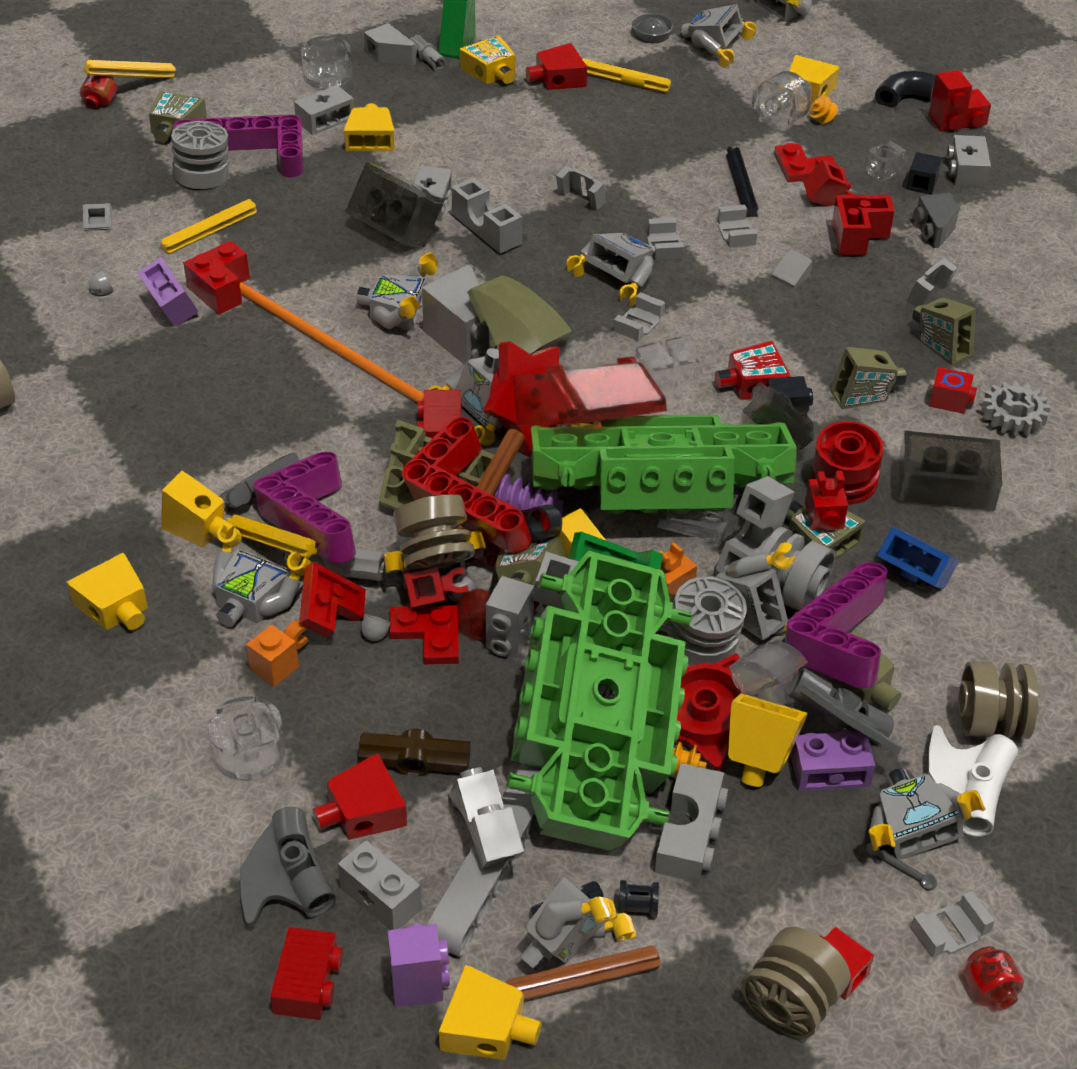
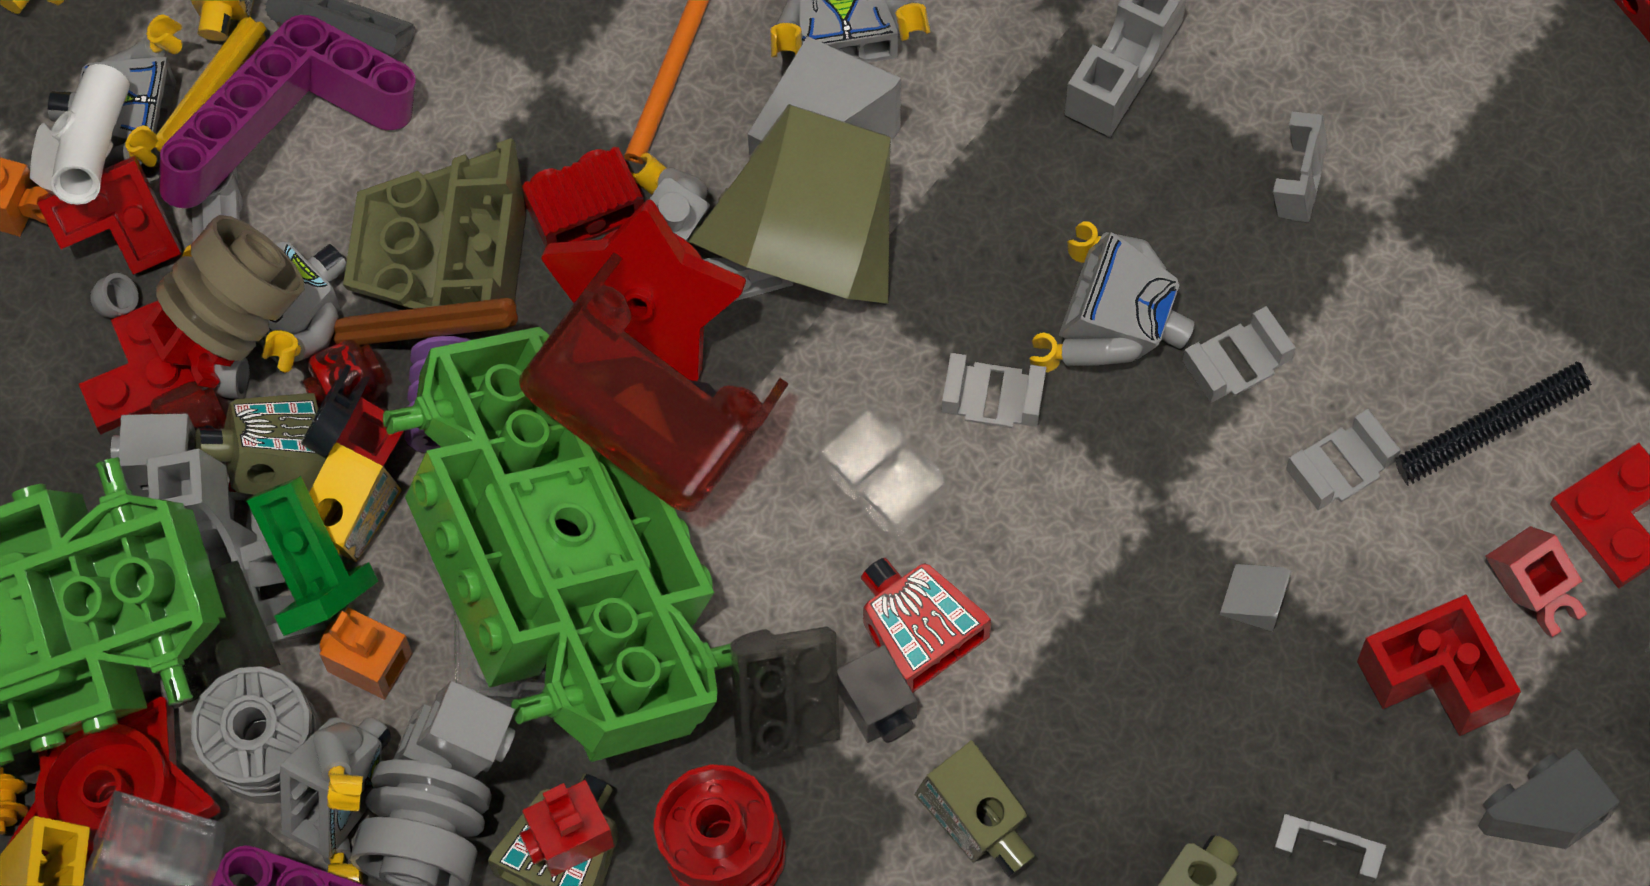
camera: 70 degrees right, 20 degrees up
(278, 590) = (80, 137): none -> white pin
(434, 474) = (350, 281): red beam -> none

